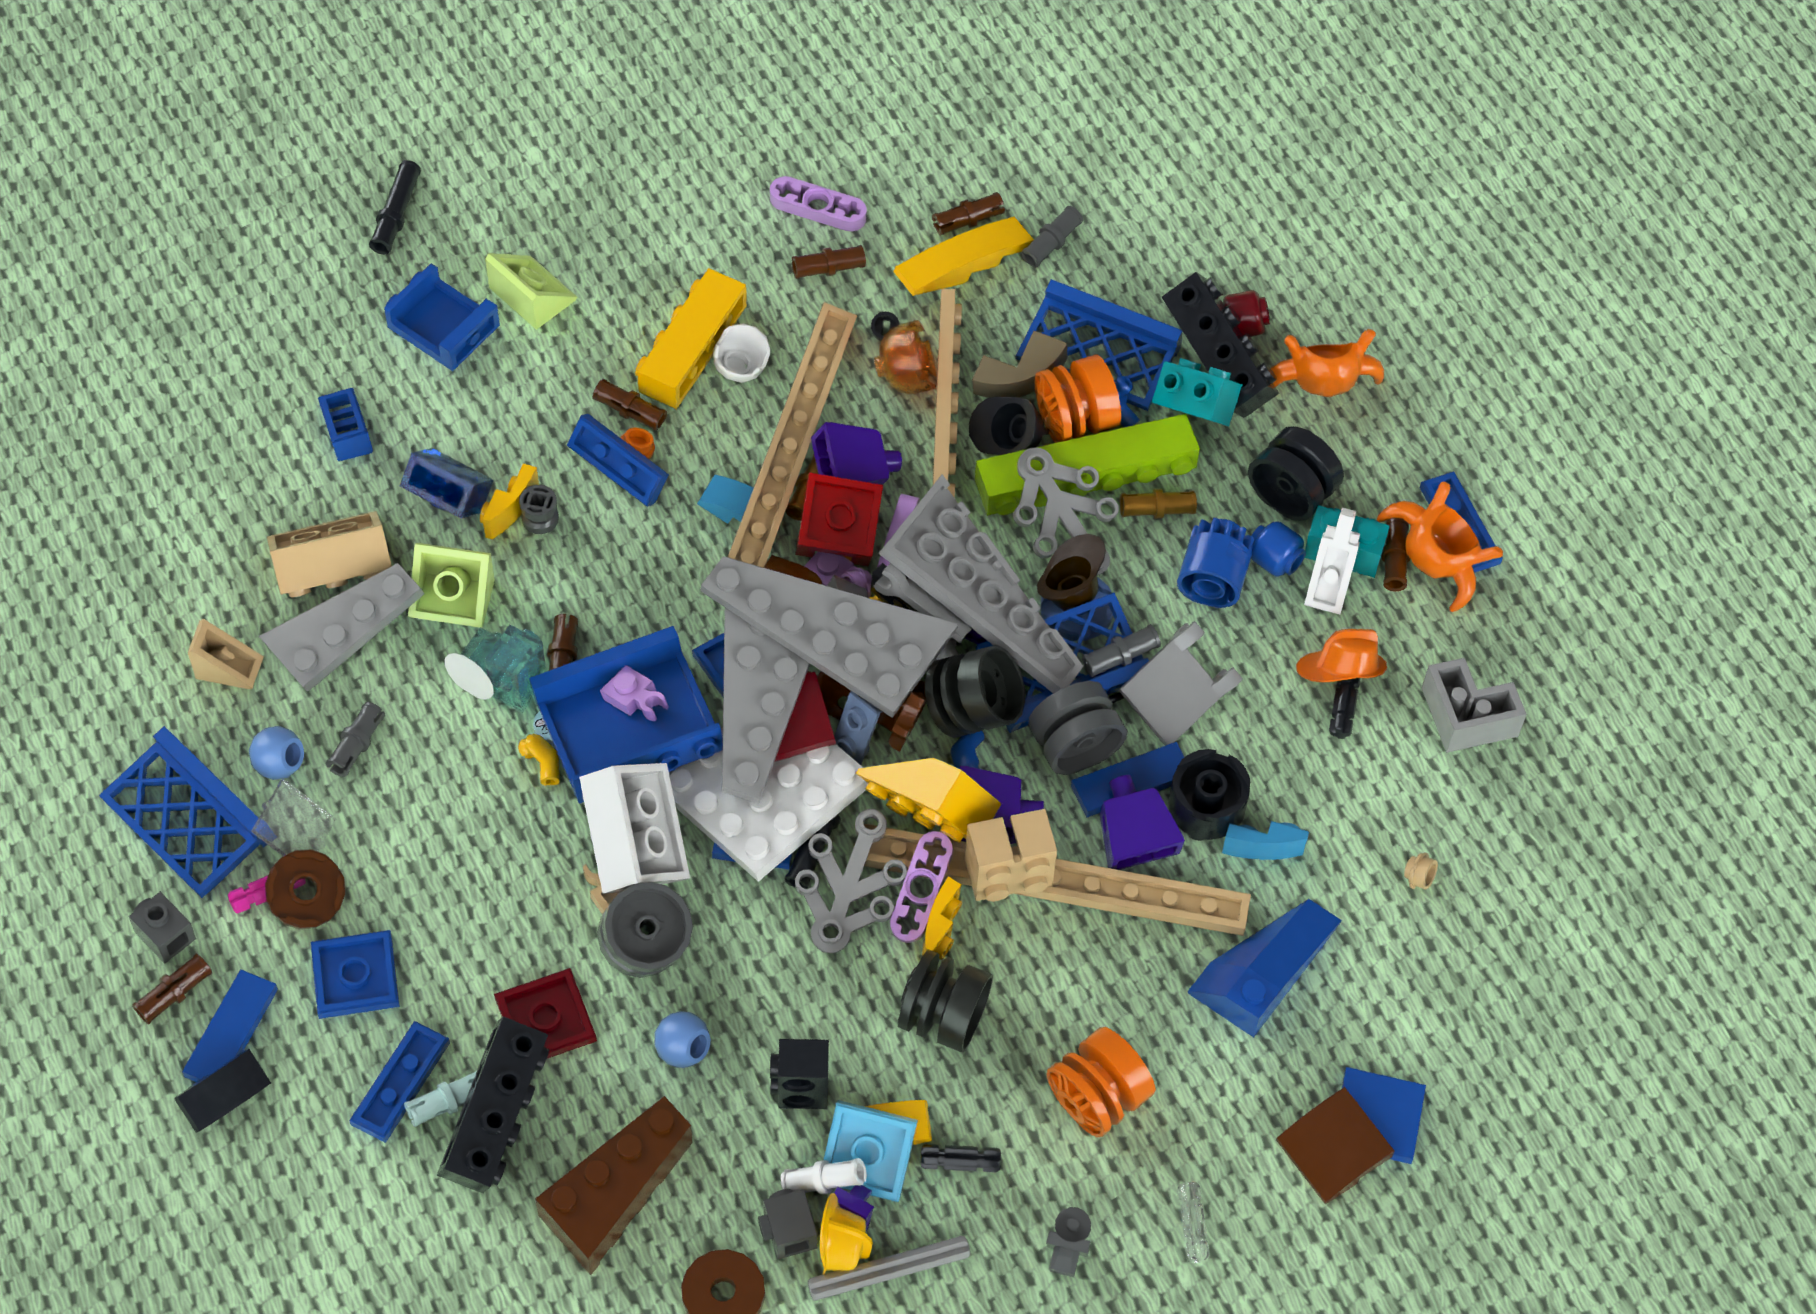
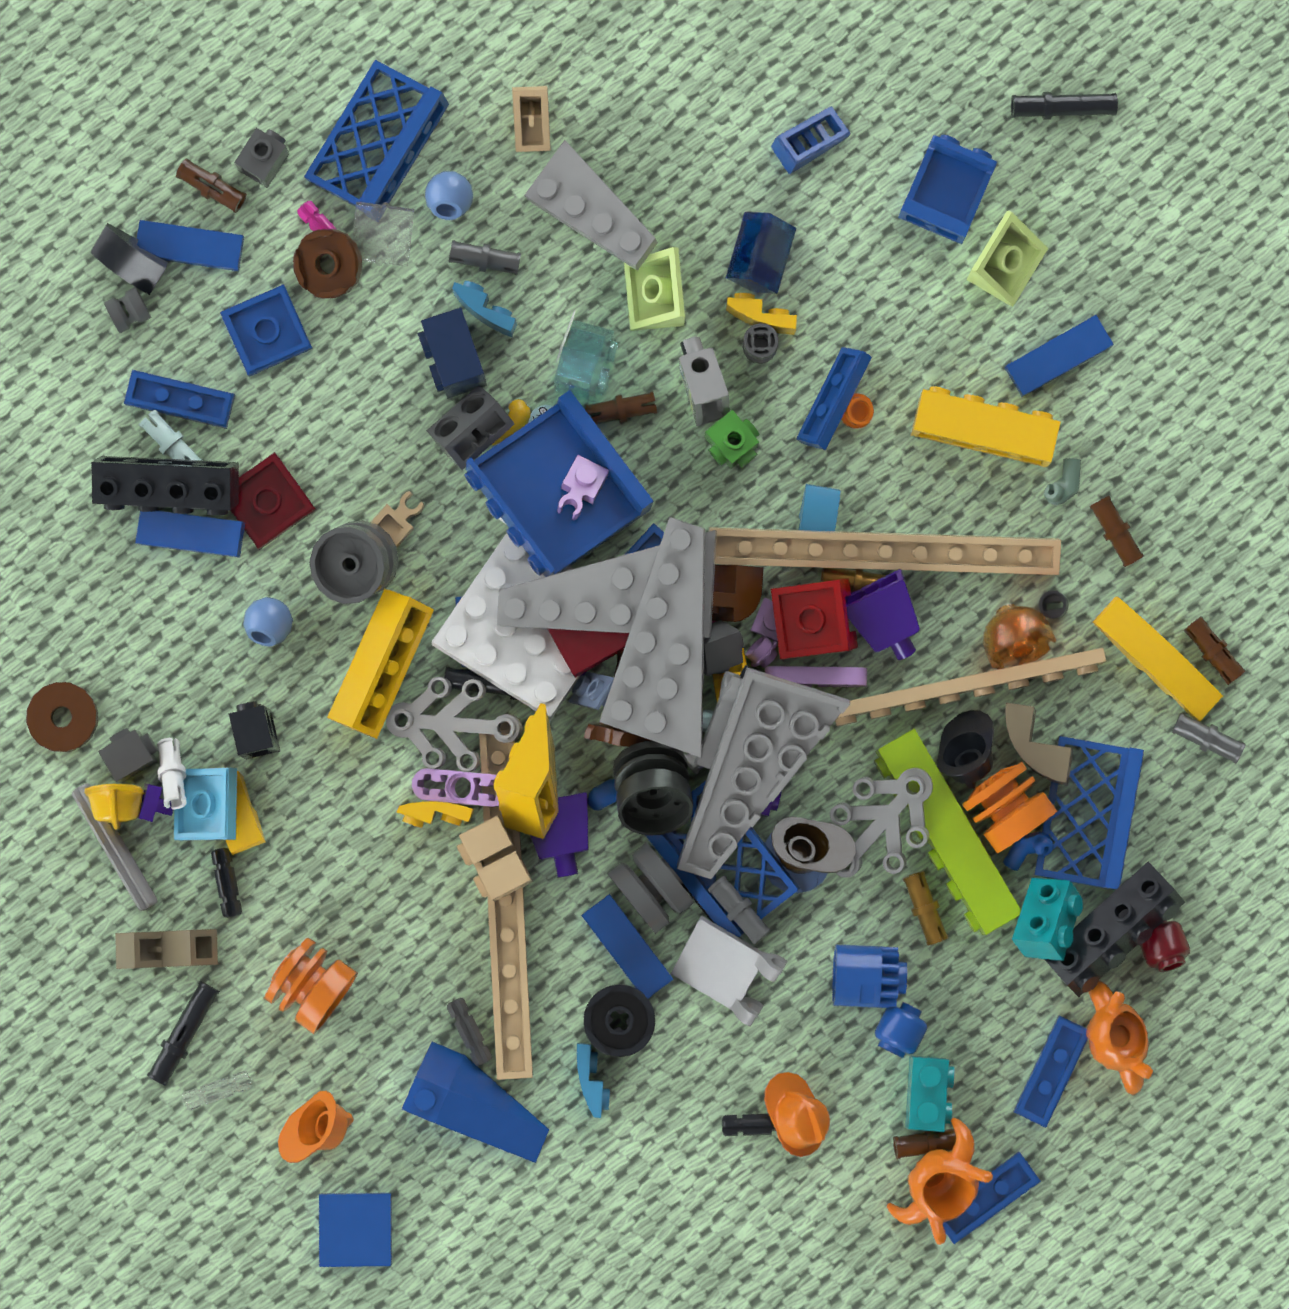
camera: 75 degrees right, 25 degrees up
(280, 1106) = (134, 306): none -> dark grey wheel
(329, 553) = (665, 171): tan slope -> none
(403, 756) = (475, 302): none -> dark azure slope
(450, 780) = (454, 353): none -> dark blue brick
(534, 788) = (470, 426): none -> dark grey brick
(556, 1101) = (190, 533): none -> blue tile
(562, 563) = (703, 382): none -> light grey torso
(612, 1184) = (114, 597): reddish brown wedge -> none
(629, 404) = (900, 391): reddish brown pin -> none
(631, 553) = (732, 428): none -> bright green brick
(634, 826) = (438, 526): white slope -> none
(640, 270) = (1059, 356): none -> blue tile
(739, 346) = (980, 469): white hair -> none
(763, 935) = (380, 663): none -> yellow brick
(769, 291) = (1066, 486): none -> sand green arm
(813, 192) = (1191, 529): lavender beam -> none
(944, 1000) = (353, 834): pearl dark grey wheel -> none
(1020, 1233) = (166, 948): none -> dark tan brick
(1069, 1240) = (158, 991): dark grey hips -> none
(1132, 1252) = (183, 1033): none -> black pin
(1137, 826) = (573, 962): dark purple torso -> none
(1186, 950) = (469, 1031): none -> dark grey axle
(1257, 1125) = (313, 1127): none -> orange piece
(1295, 473) = (984, 1033): black wheel -> none
(1334, 565) = (889, 1087): white hinge -> none
(1335, 1145) = (314, 1198): reddish brown slope -> none
(1347, 439) = (1051, 1071): none -> blue tile
(1421, 871) = (599, 1224): tan plate -> none
(1470, 715) = (763, 1238): light grey brick -> none

